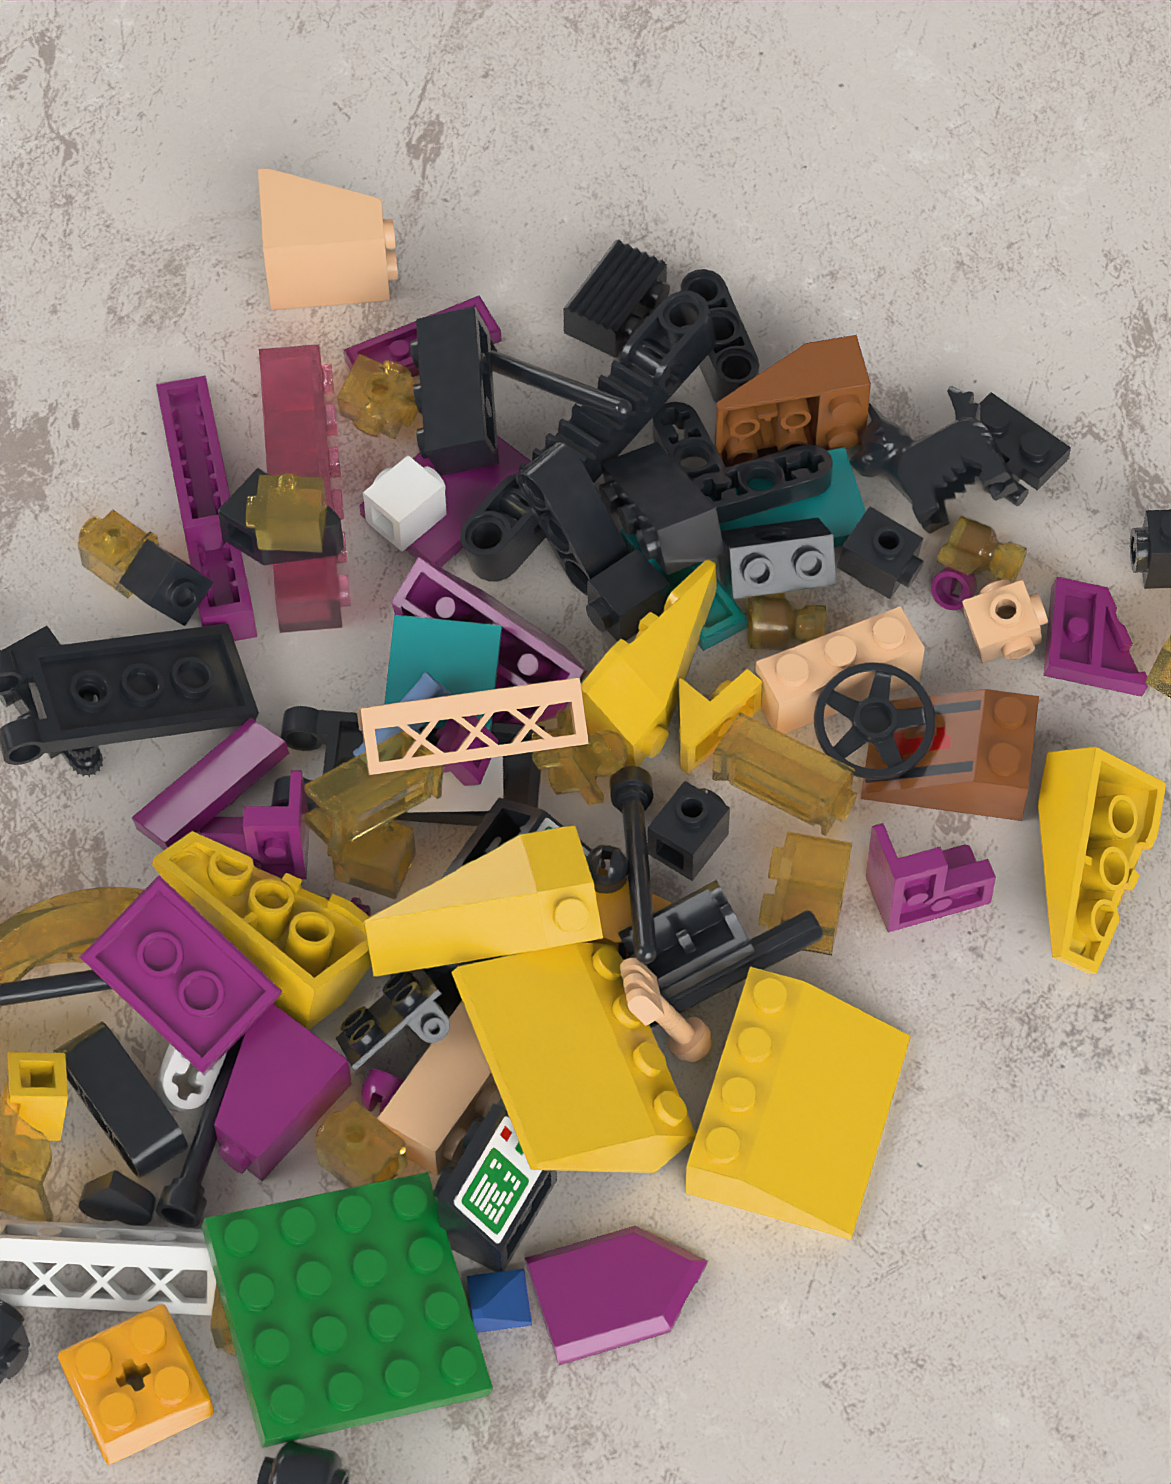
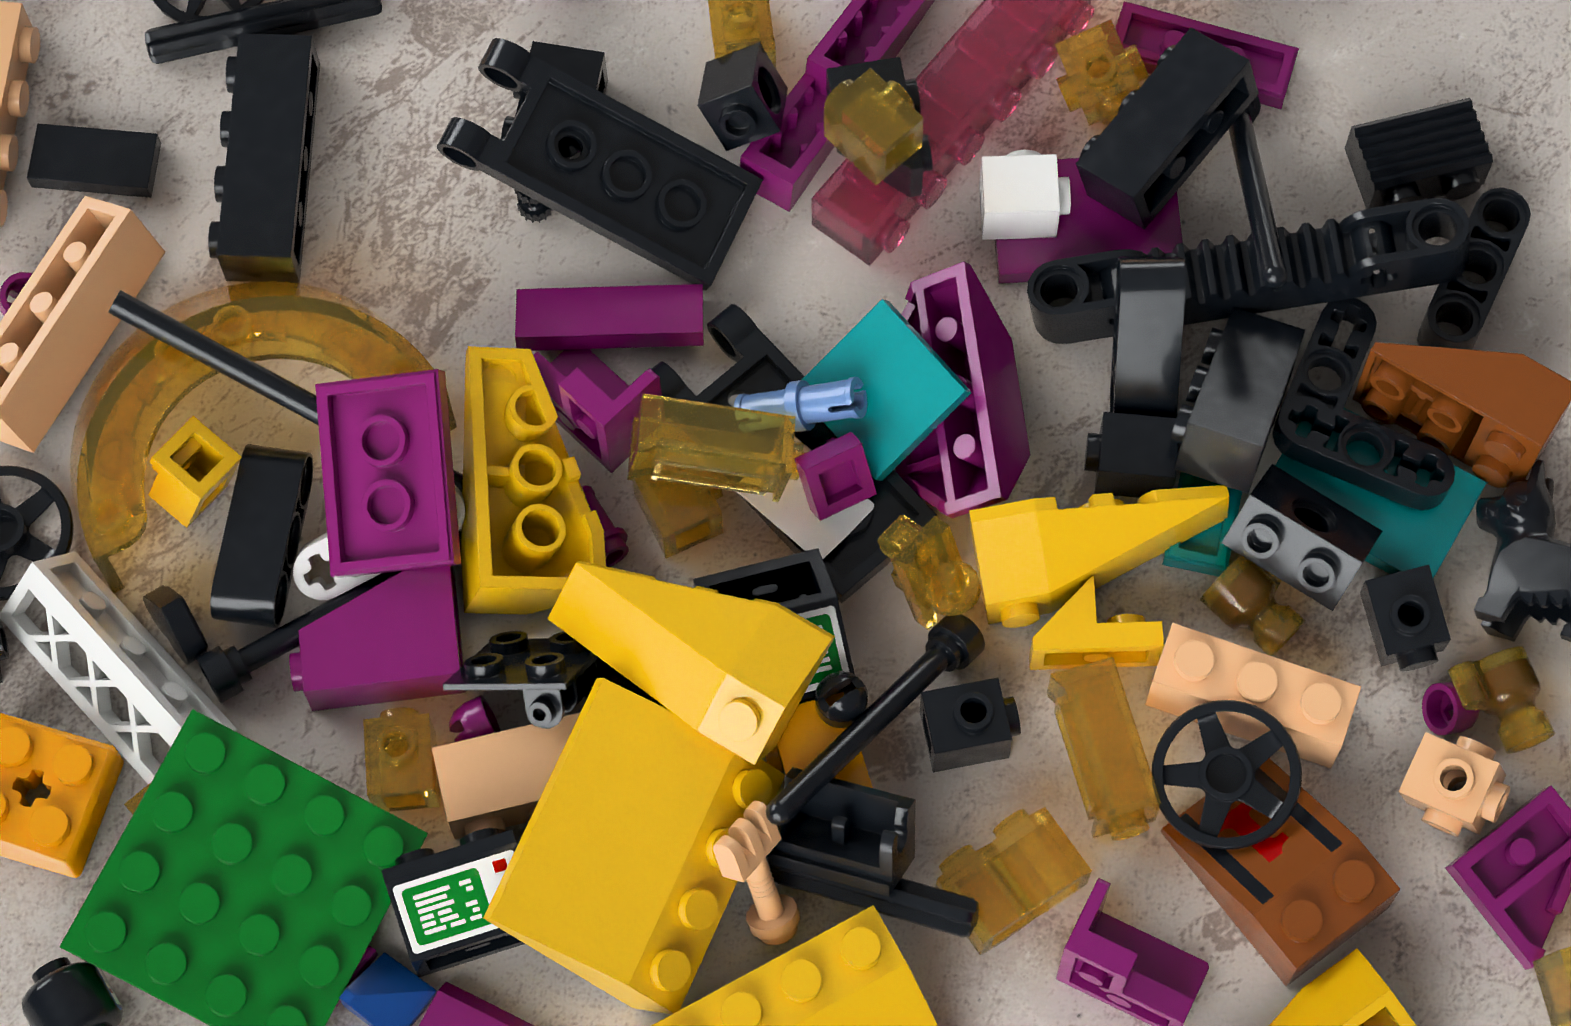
camera: 45 degrees right, 10 degrees up
(469, 704) = (852, 443): light nougat fence -> none

